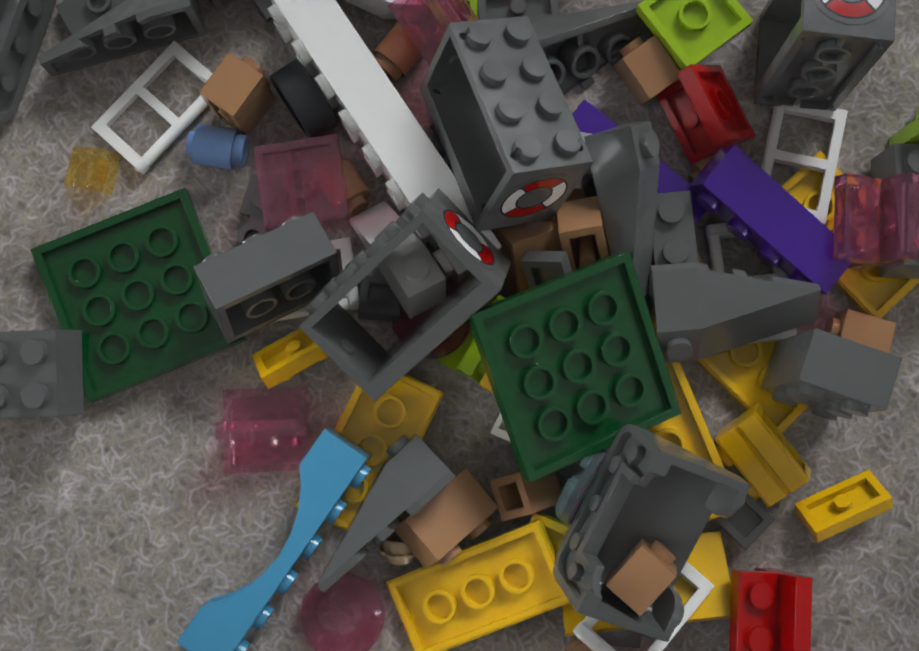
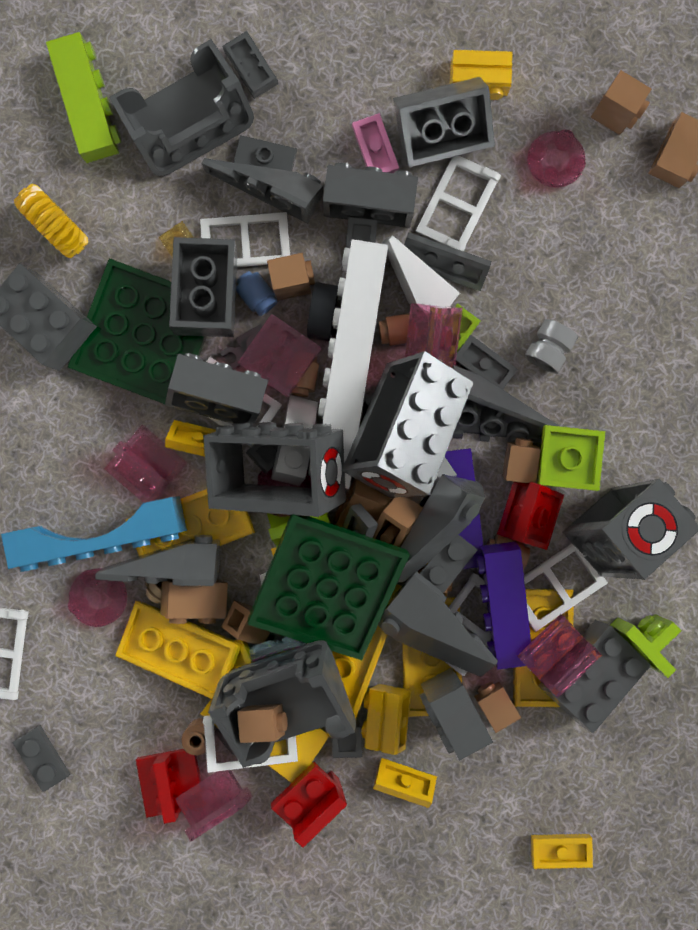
camera: 45 degrees right, 5 degrees up
(158, 183) = (203, 287): none -> dark grey brick

